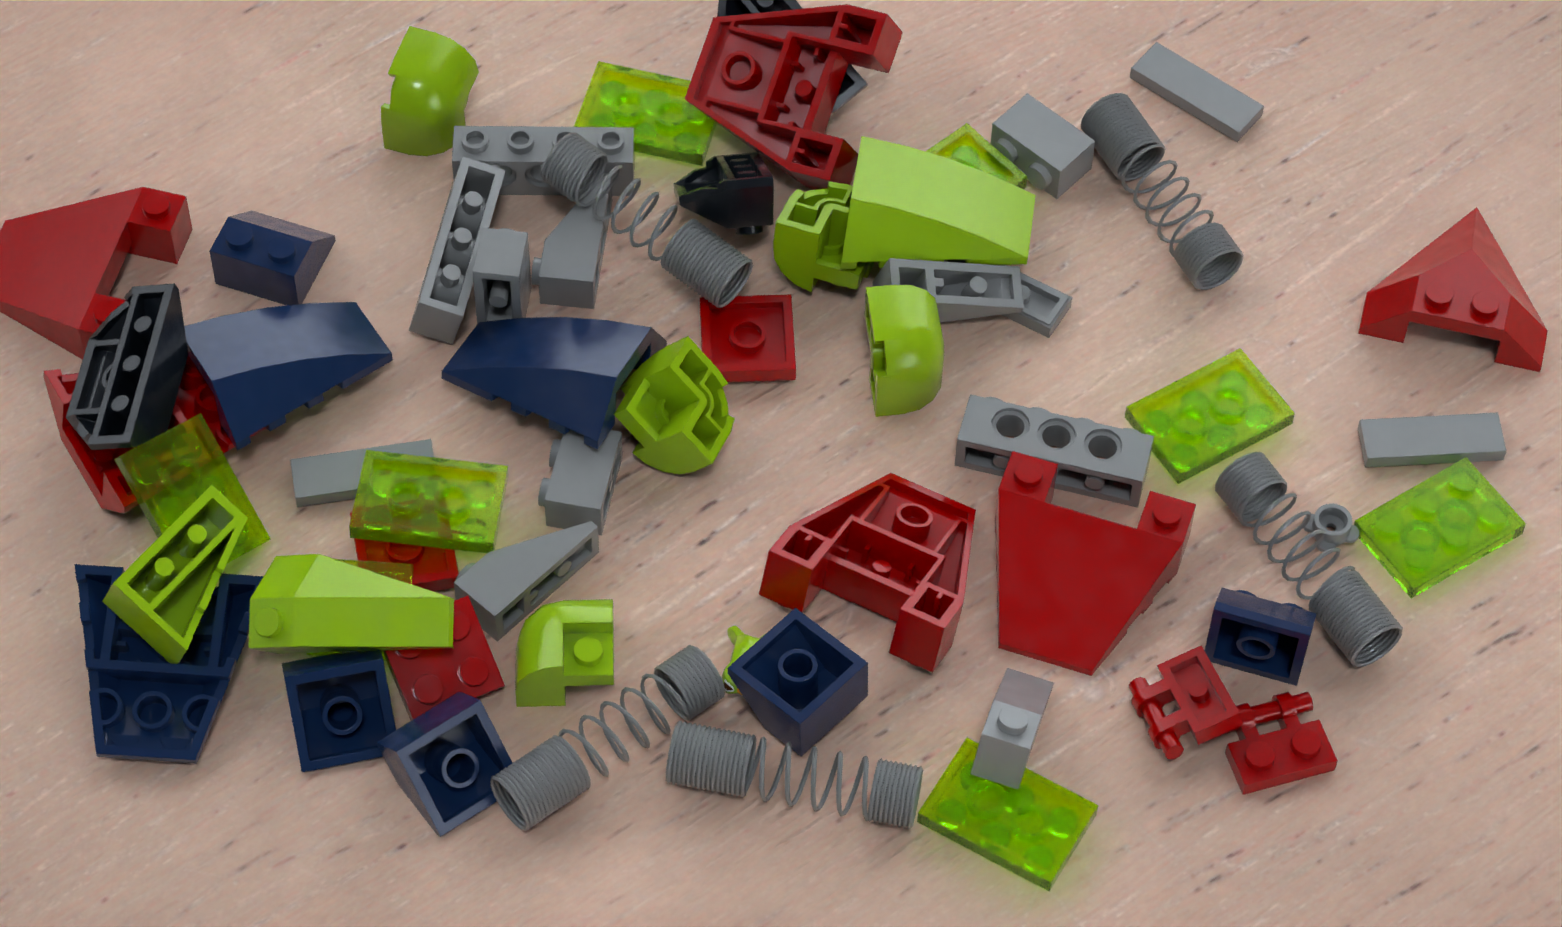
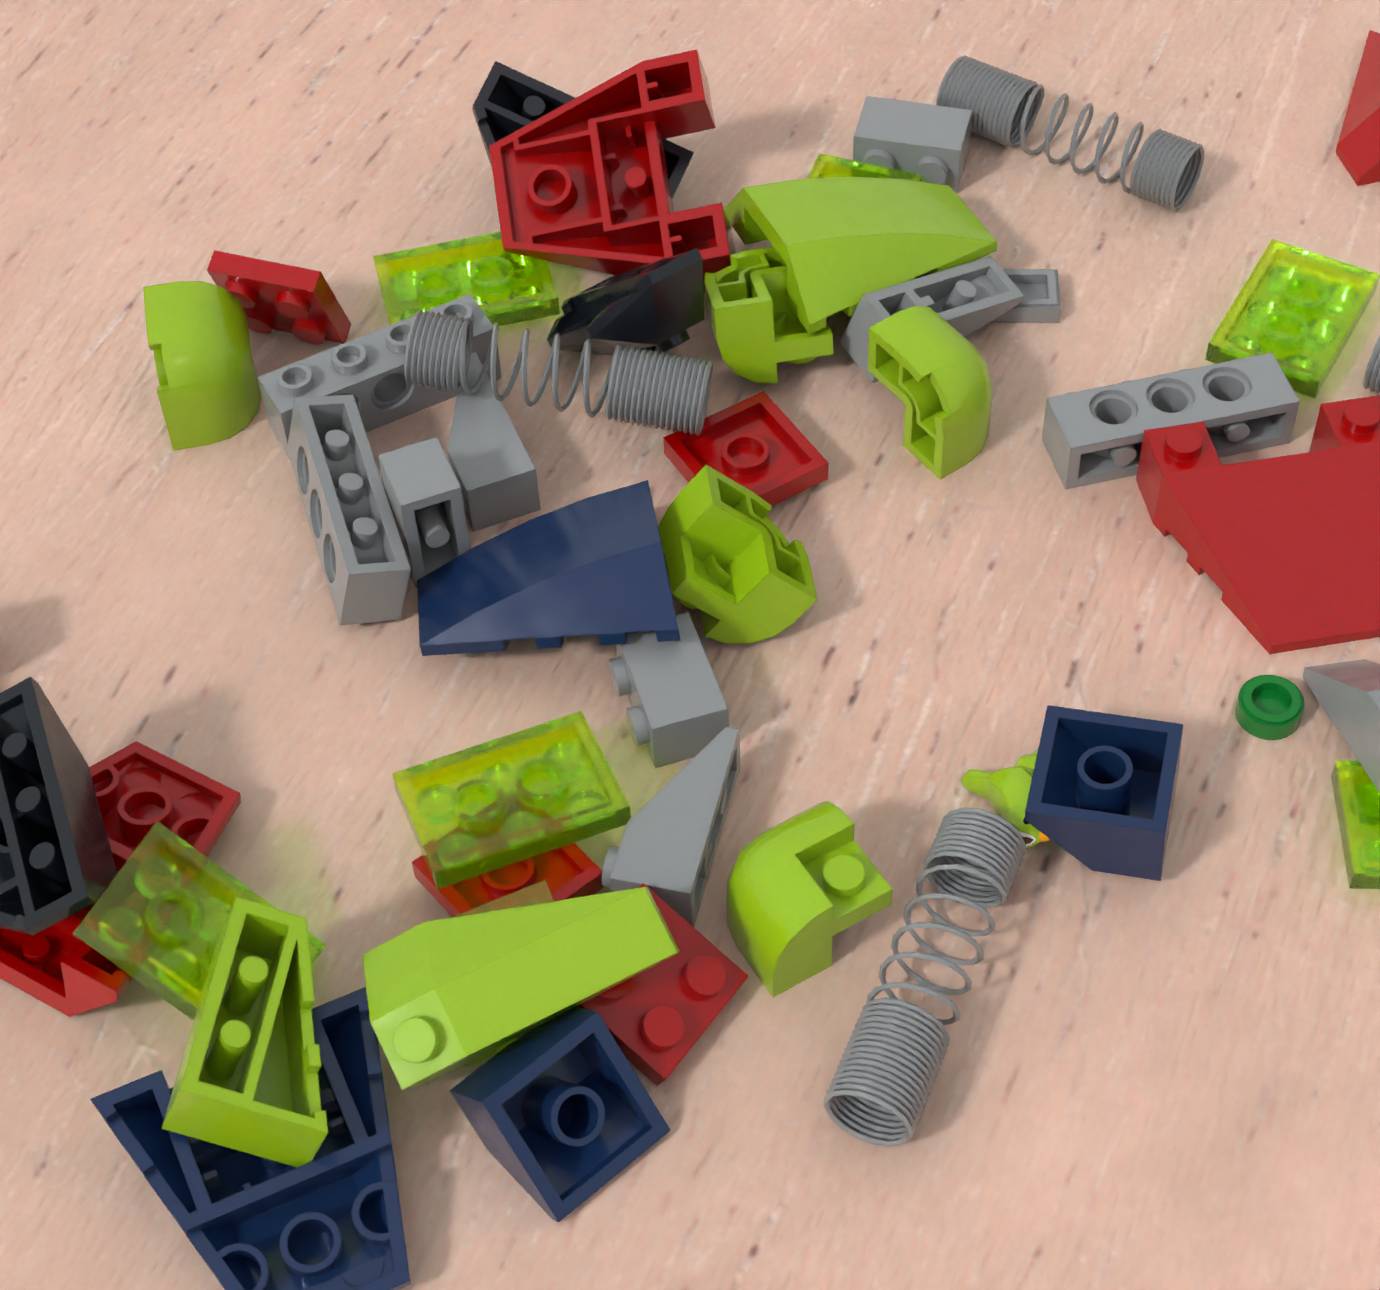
camera: 25 degrees left, 5 degrees down
(269, 257) = (111, 623): dark blue slope -> none
(280, 359) = (208, 726): dark blue wedge -> none
(337, 475) = (362, 826): light grey tile -> none
(447, 761) = (747, 1105): dark blue slope -> none
(506, 69) = (282, 297): none -> red plate
(726, 764) = (1096, 929): light grey piece -> none
(886, 551) = (1094, 609): red wedge -> none
(964, 682) = (1269, 707): none -> green tile
(1196, 91) = (1018, 41): light grey tile -> none

